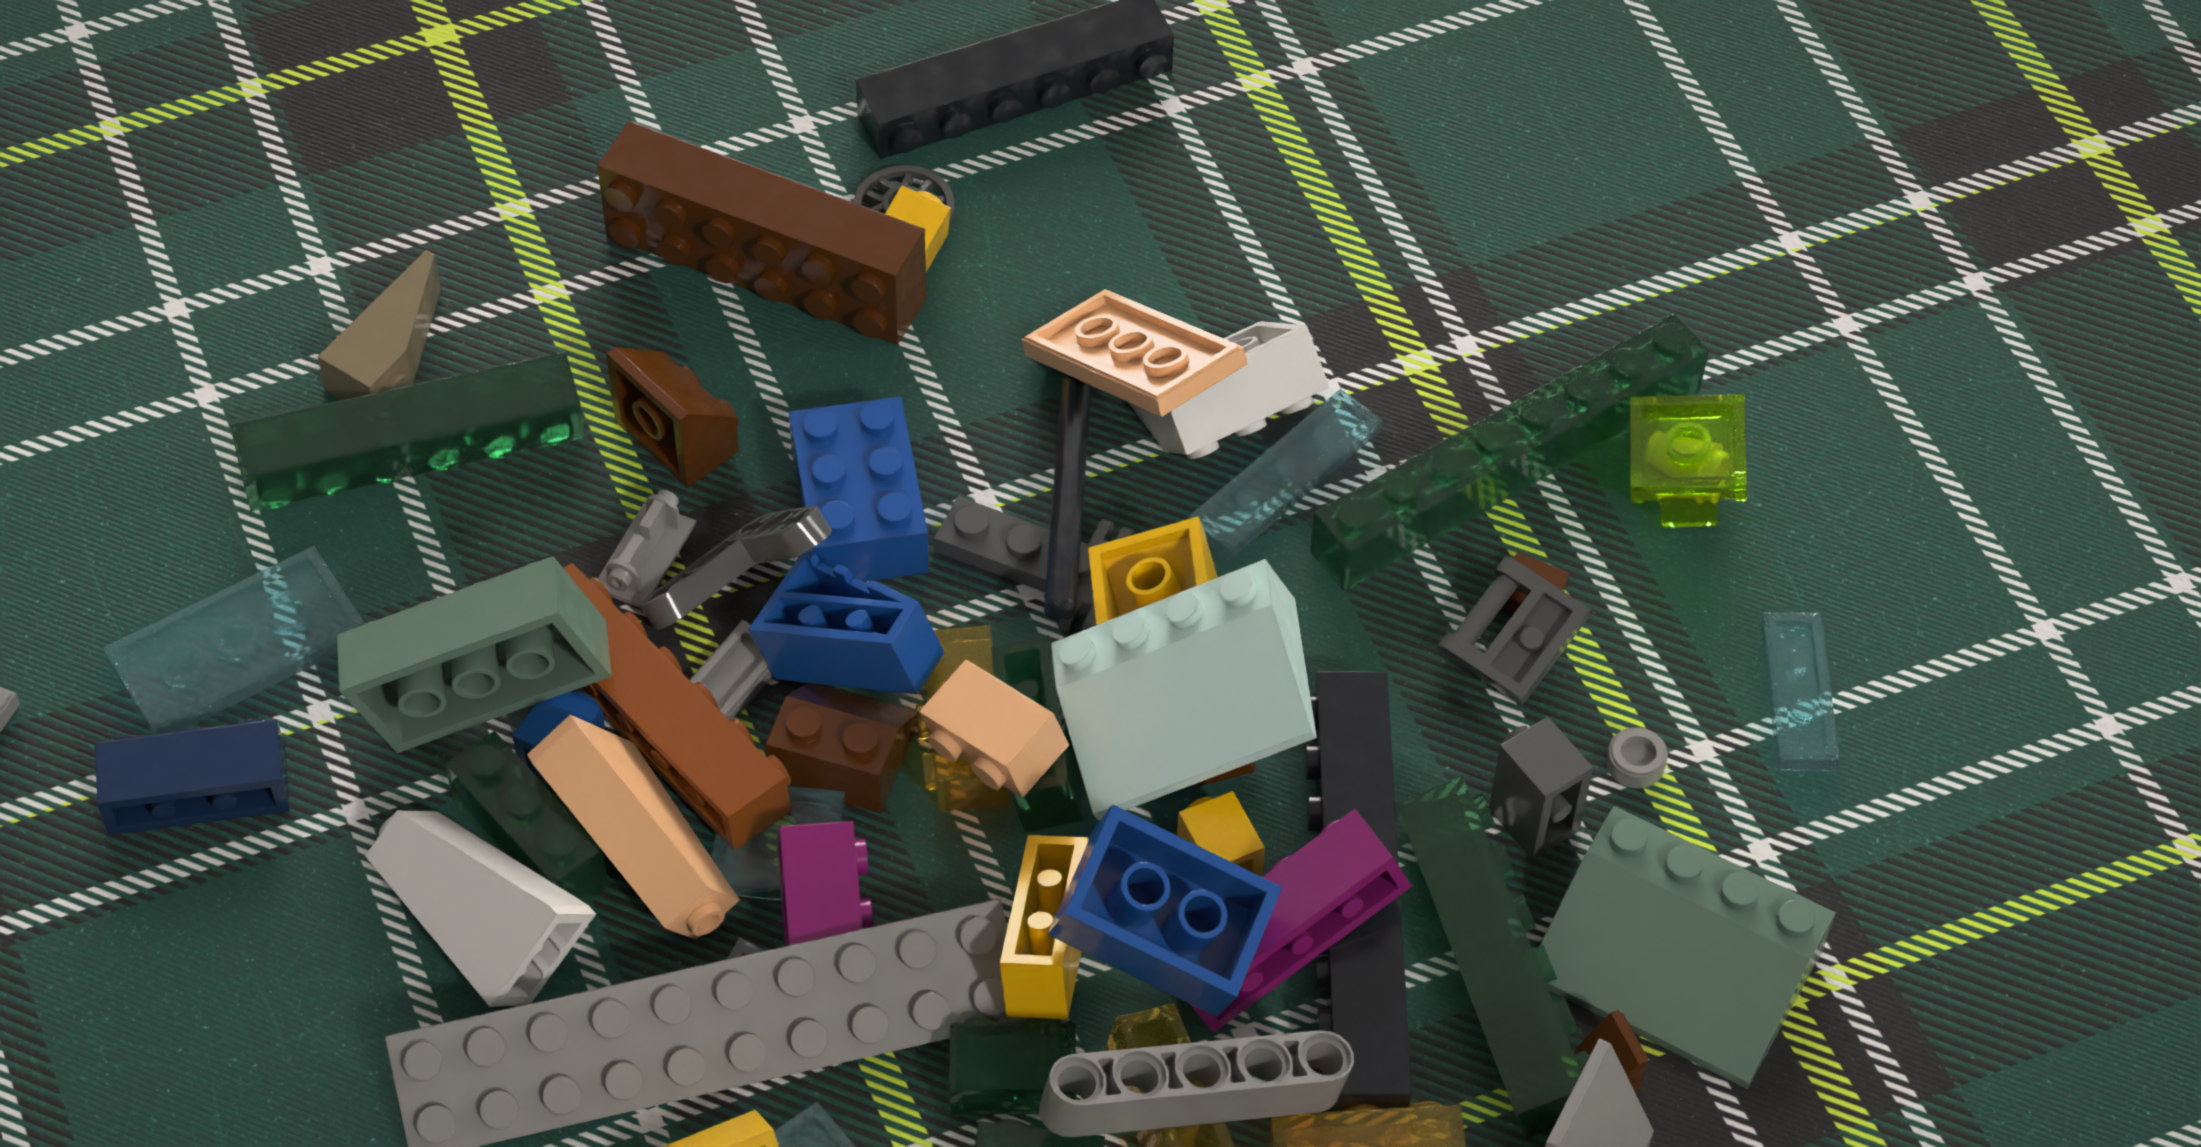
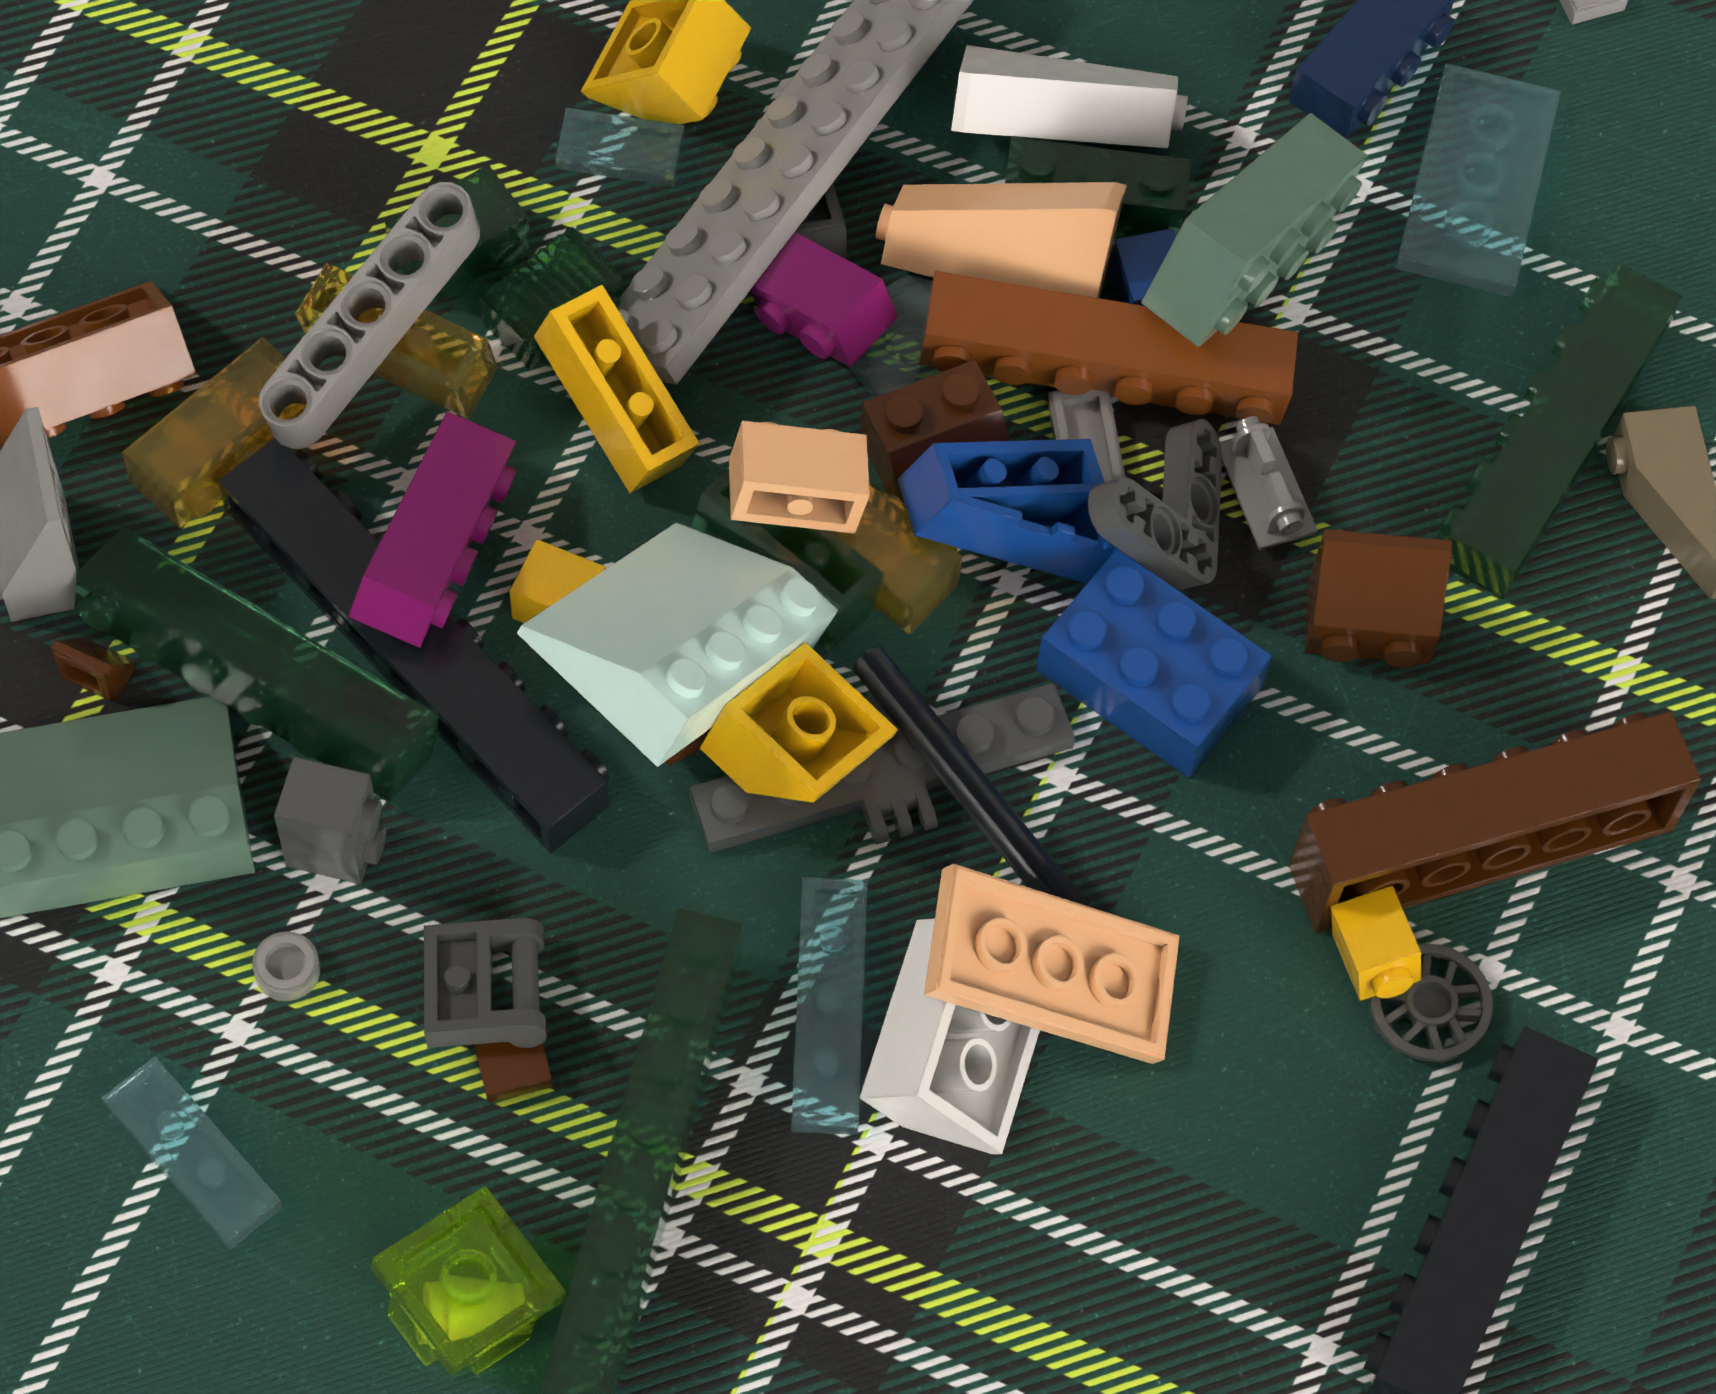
camera: 135 degrees right, 10 degrees up
(1165, 911) = (503, 392): blue brick -> none

